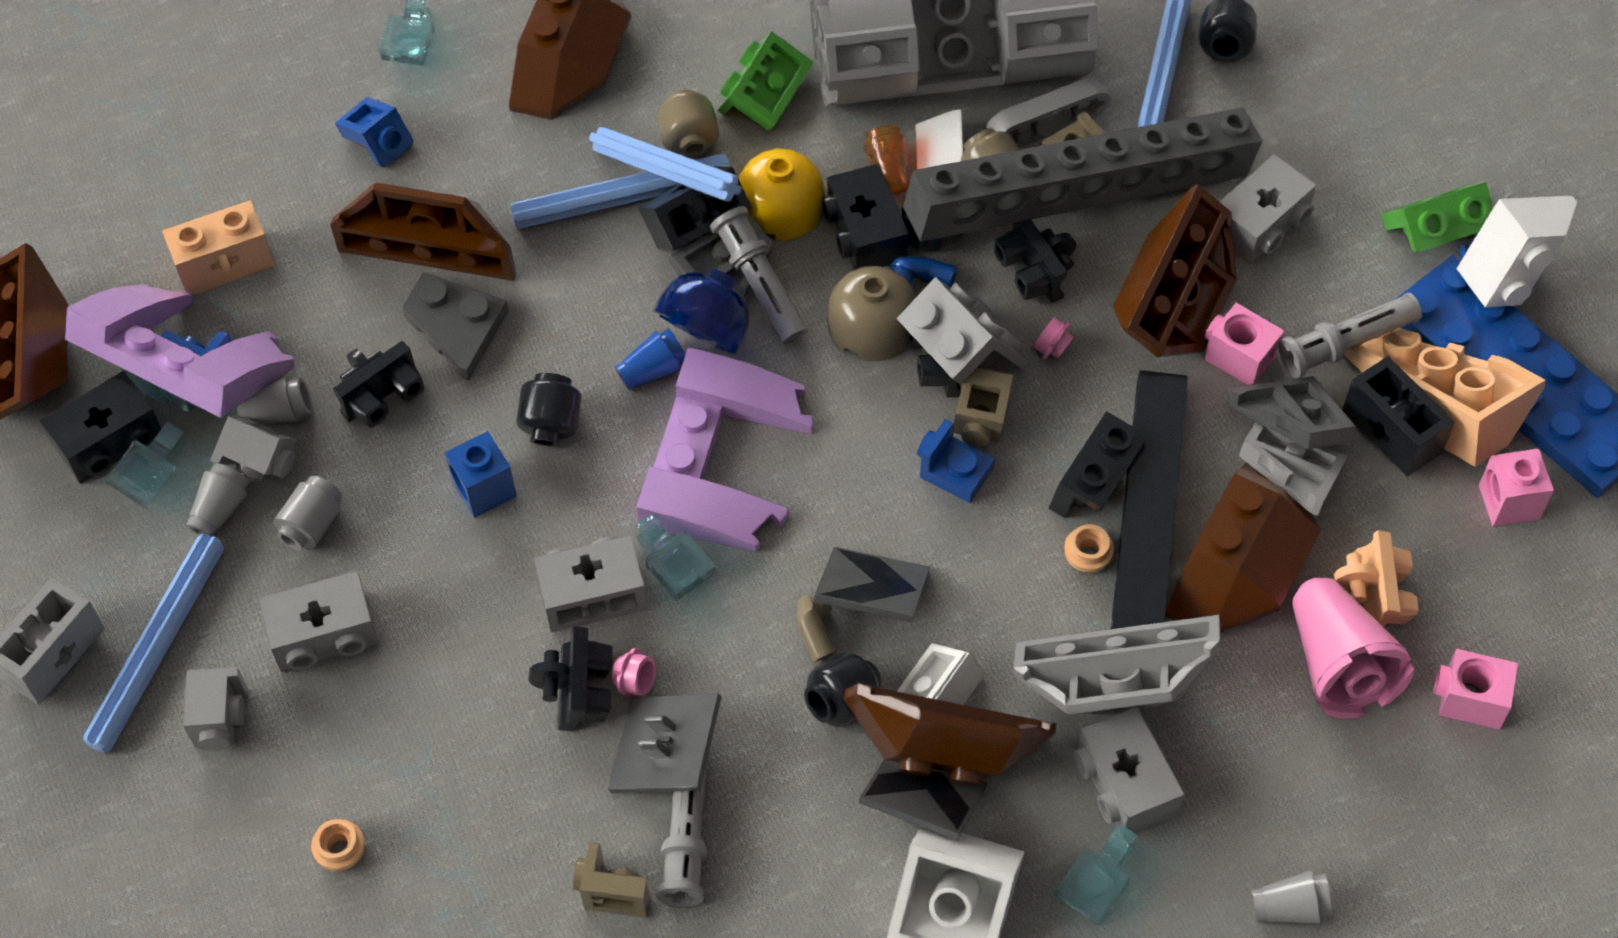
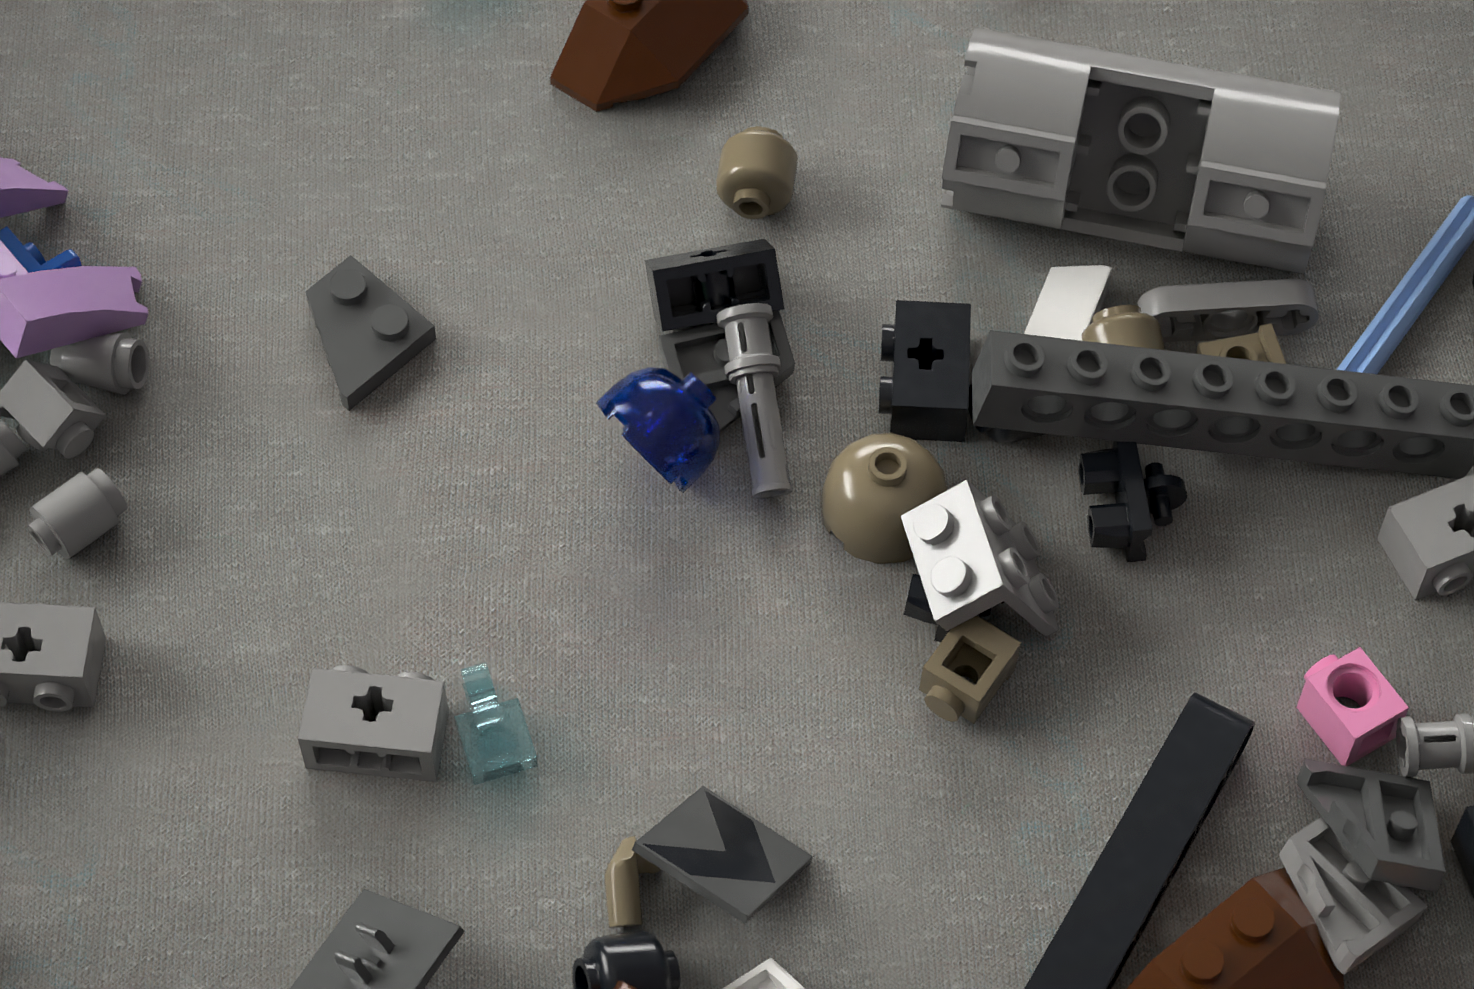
camera: 20 degrees right, 0 degrees up
(219, 248) = (118, 144): light nougat brick -> none
(374, 379) = (229, 373): black hips -> none
(377, 128) = (374, 58): blue bracket -> none
(423, 231) = (369, 203): reddish brown wedge -> none
(480, 474) = (301, 537): blue brick -> none
(548, 409) = (422, 482): black head -> none
(577, 661) = (319, 817): black hips -> none
(596, 196) = (627, 230): light blue axle -> none
(634, 673) = (377, 860): bright pink plate -> none
(651, 360) = (578, 463): blue cone -> none
(665, 164) = (696, 217): light blue axle -> none
(675, 487) = (534, 642): lavender wedge -> none
(767, 80) = (882, 150): bright green bracket -> none
(783, 192) = (836, 302): yellow cylinder -> none
(889, 149) = (994, 295): clear orange cone -> none
(924, 269) = (976, 462): blue arm -> none
(953, 463) = (901, 730): blue bracket -> none
(1053, 339) = (1103, 611): bright pink plate -> none
(1093, 537) = (1032, 890): light nougat plate -> none
(1098, 466) = (1081, 801): black bracket -> none
(1180, 277) = (1301, 589): reddish brown wedge -> none

